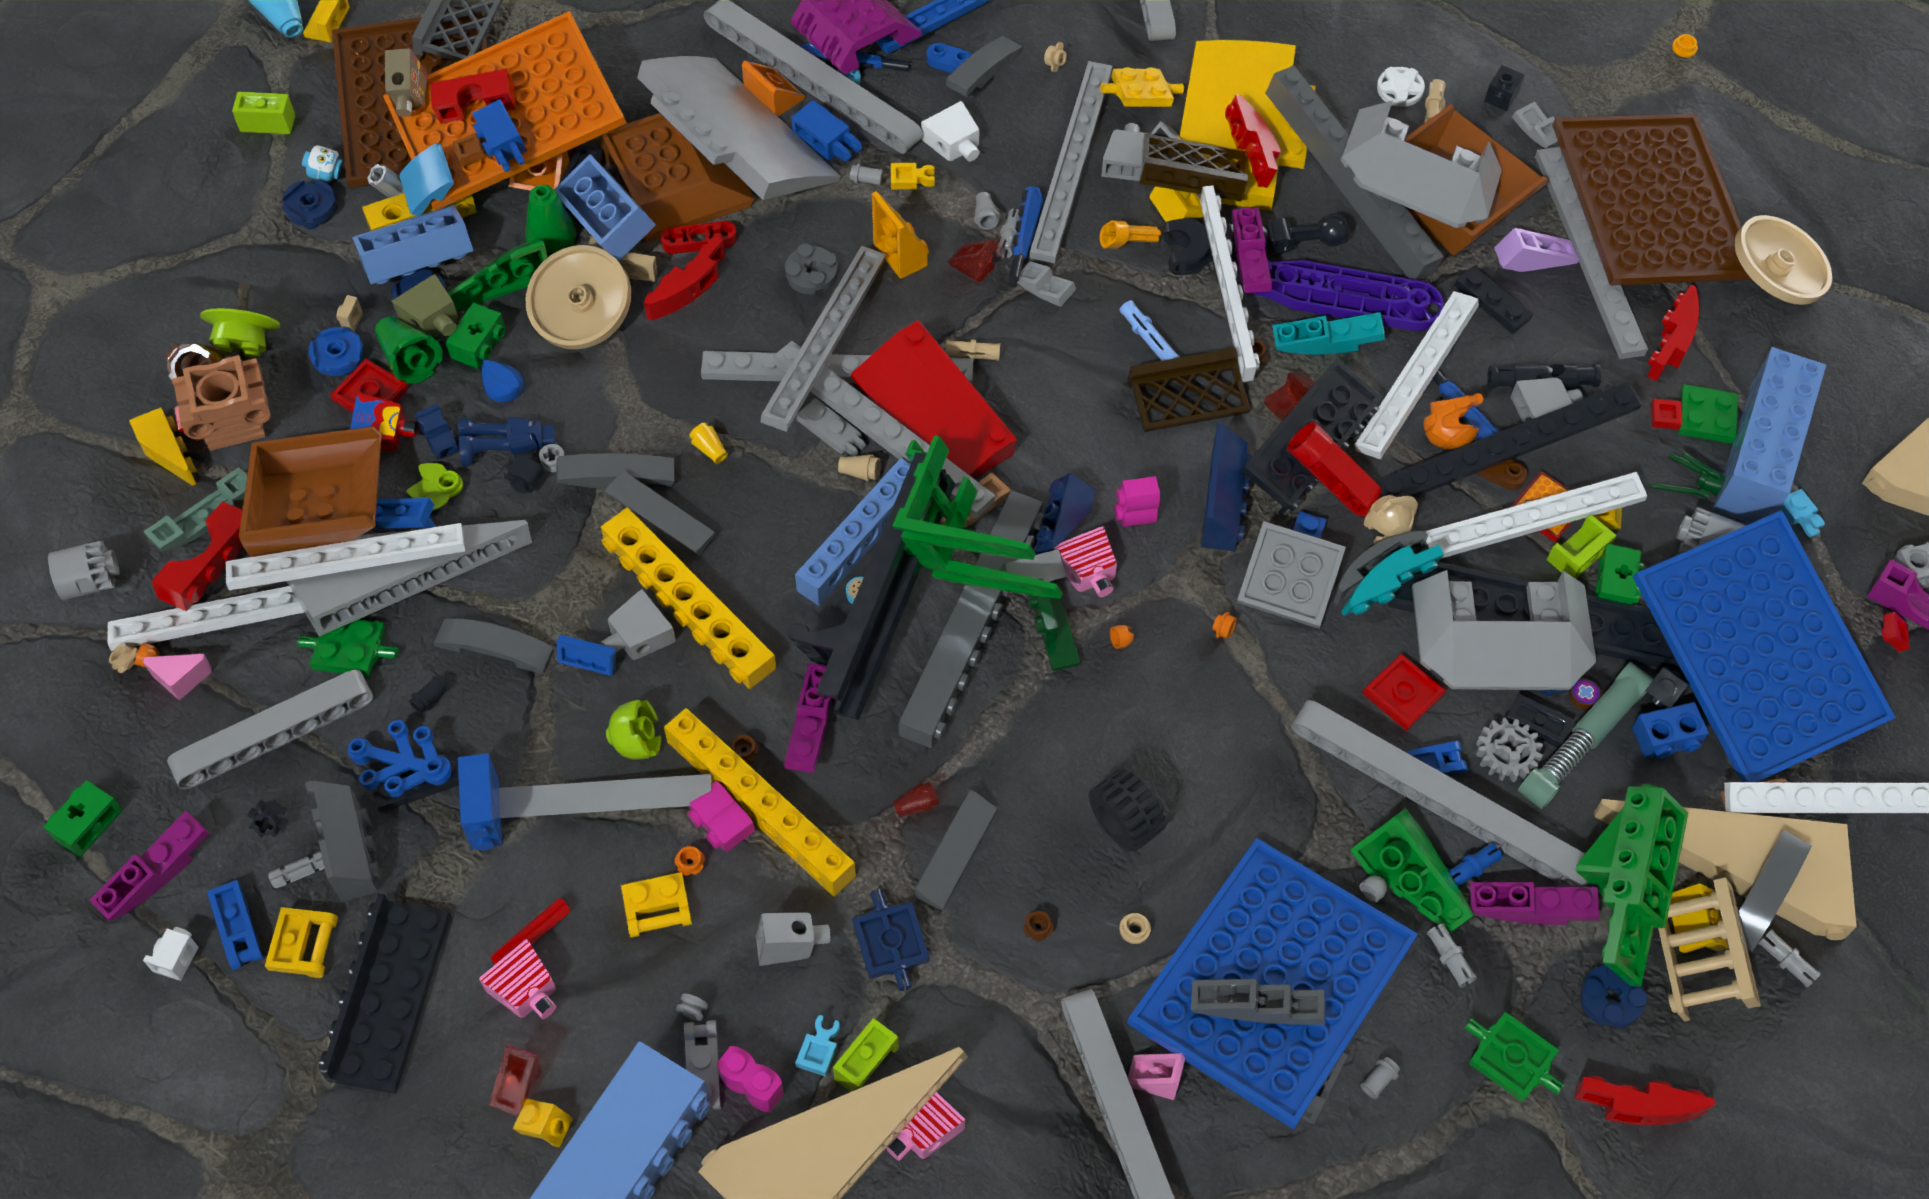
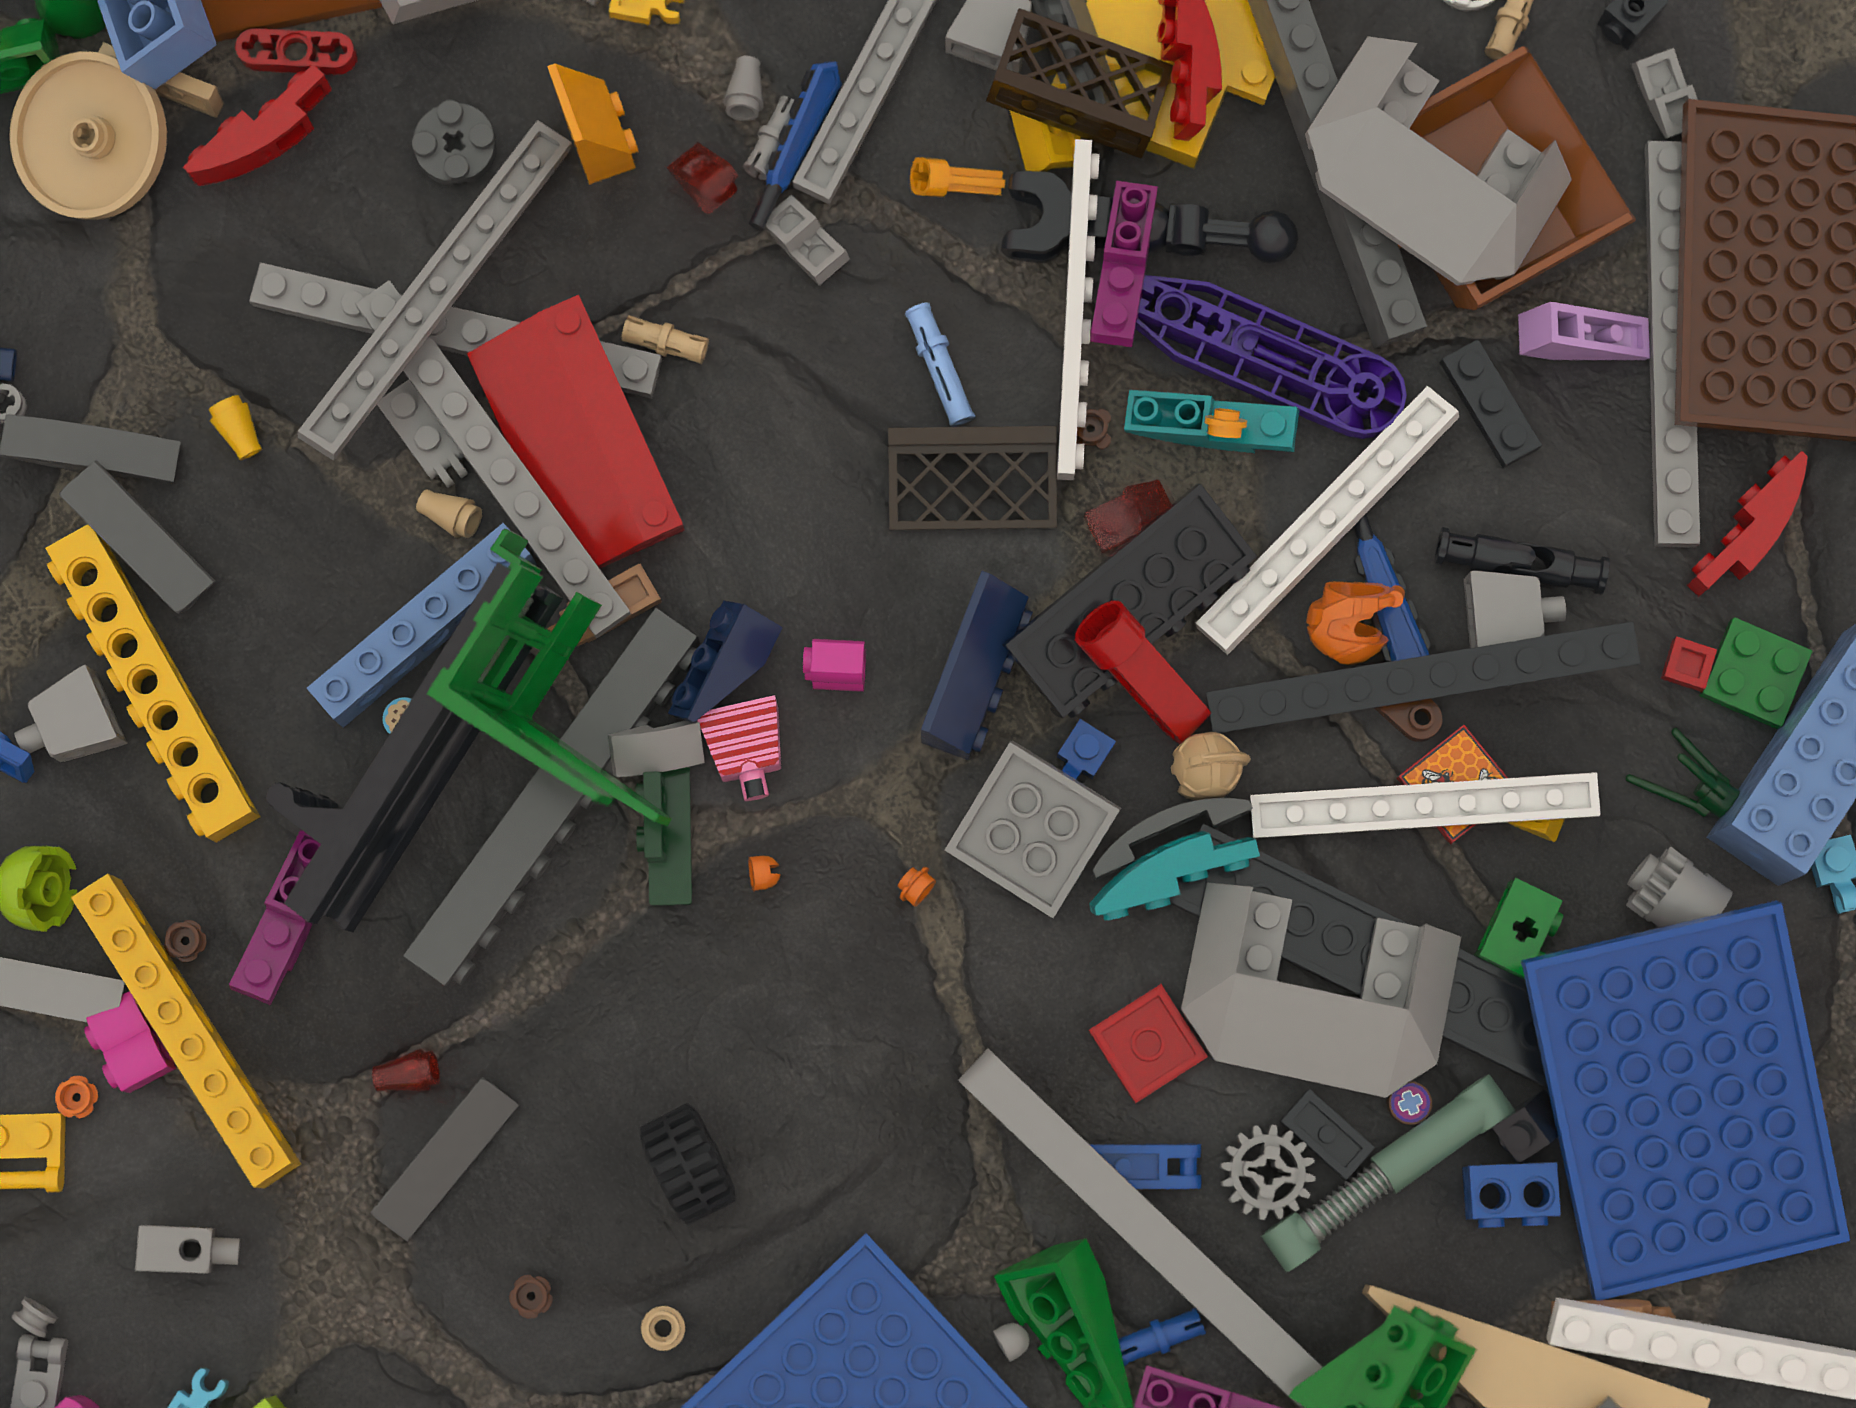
camera: 15 degrees right, 20 degrees up
(890, 940) = (323, 1276): dark blue plate -> none
(1340, 325) = (1225, 423): none -> light orange plate
(1582, 548) = (1481, 867): lime panel -> none

